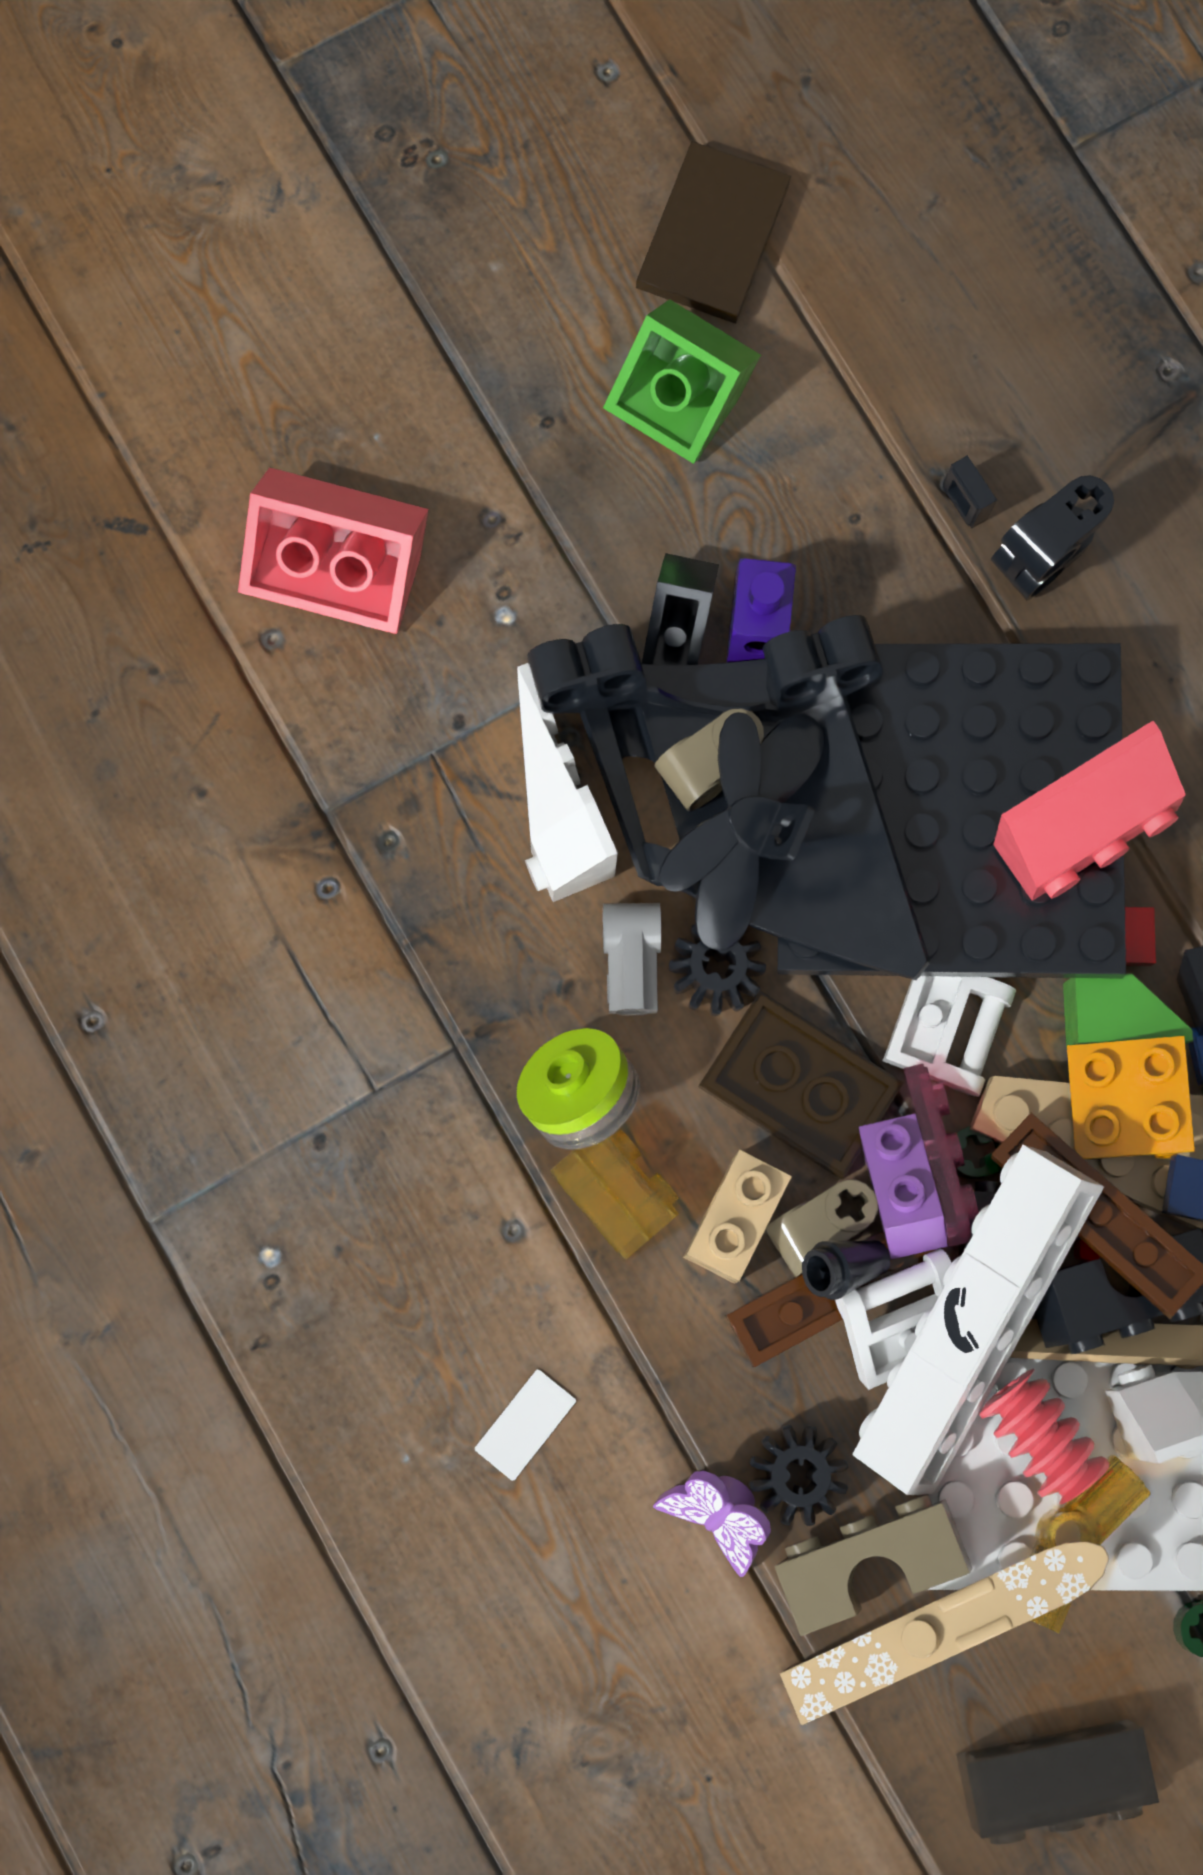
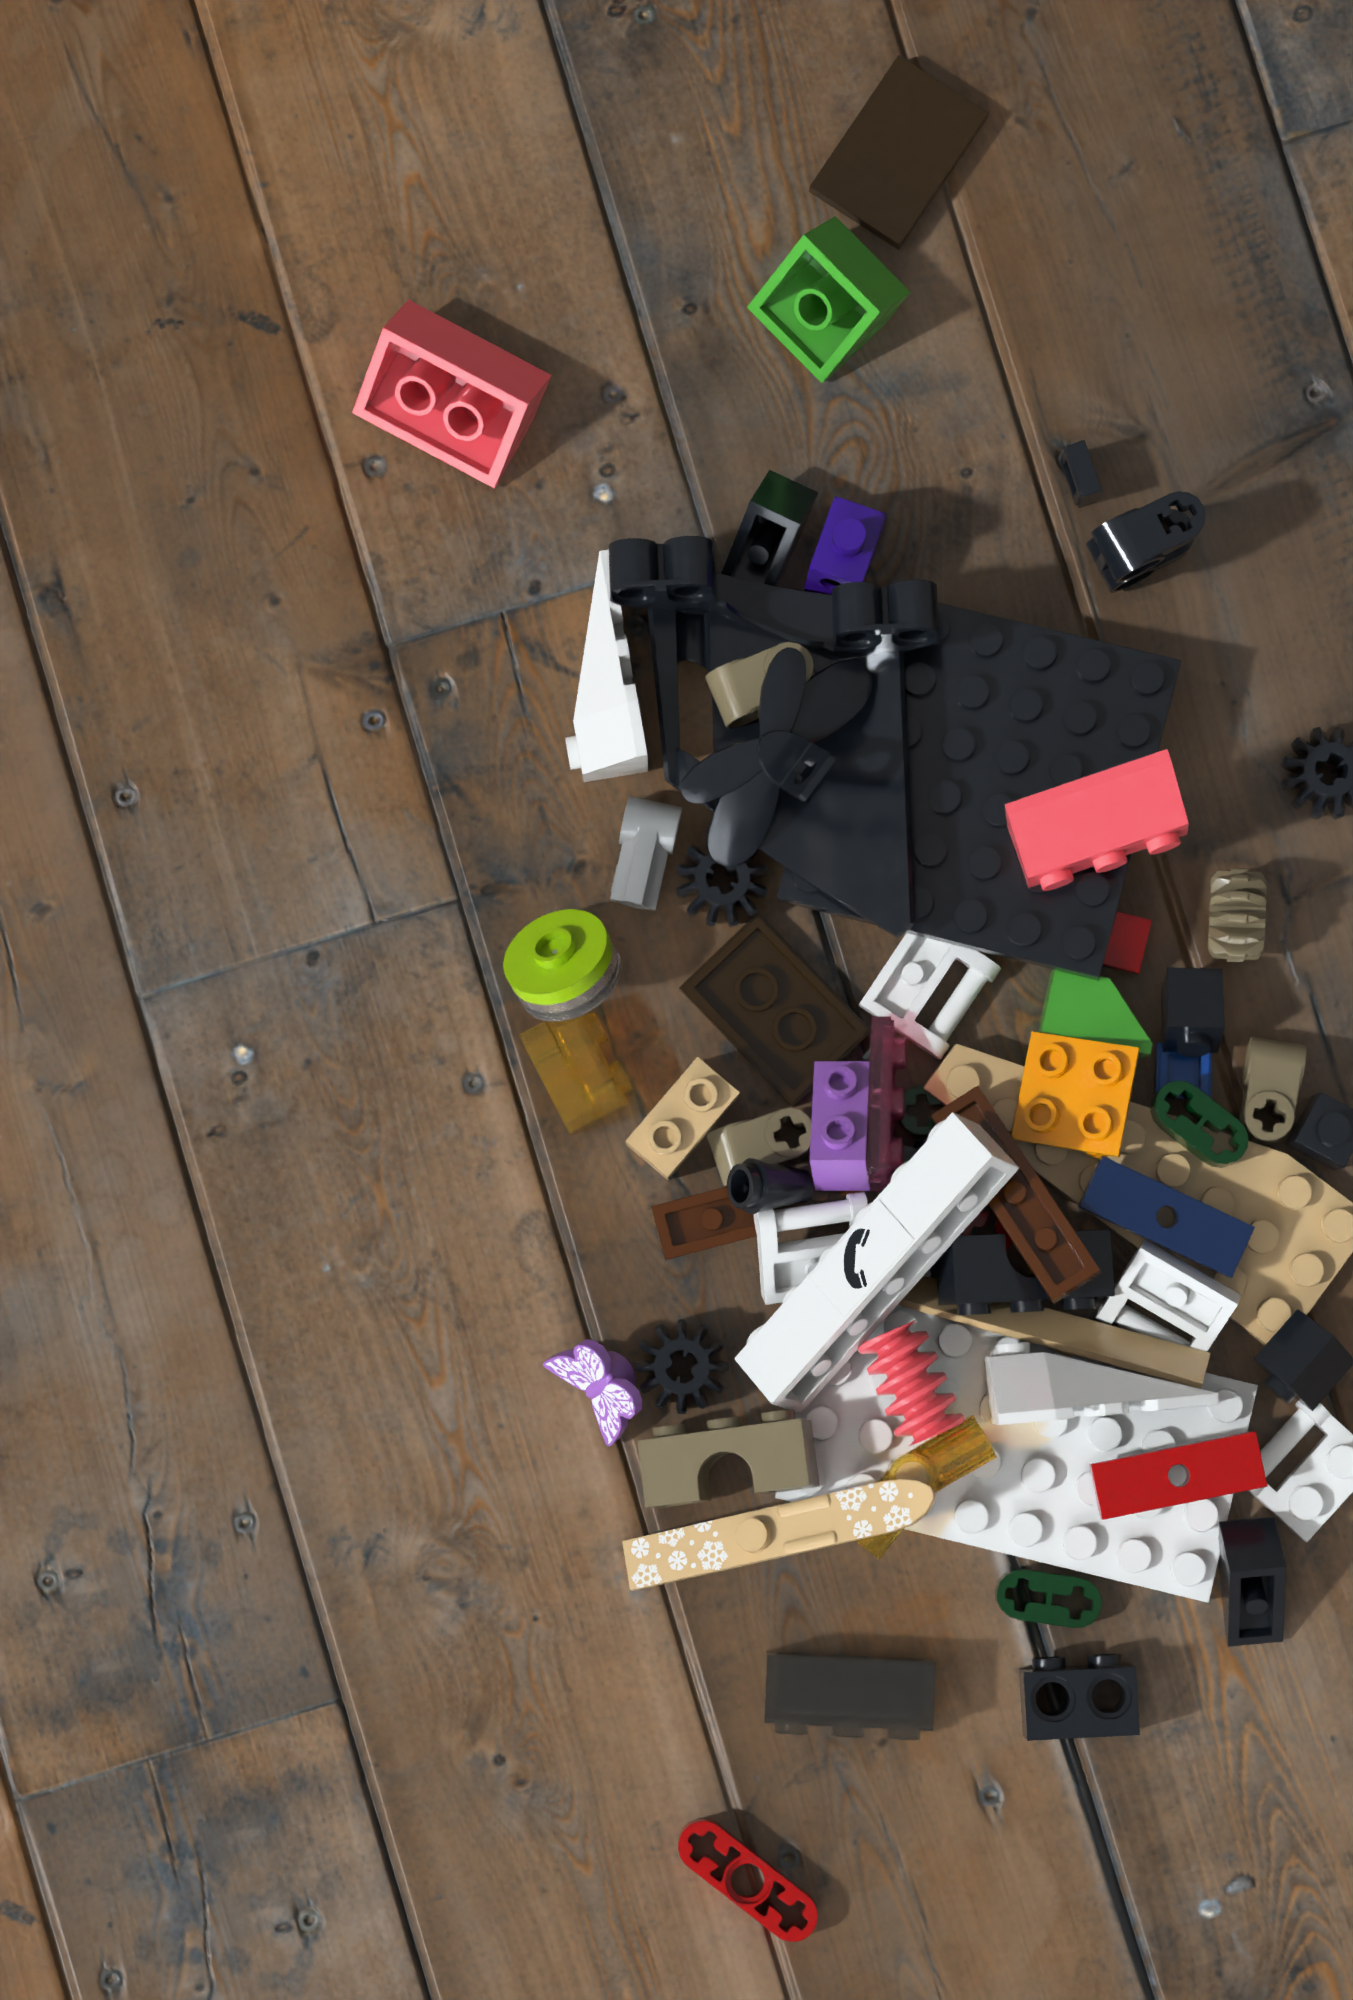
camera: 20 degrees right, 5 degrees up
(525, 1425) = (443, 1263): white sticker -> none

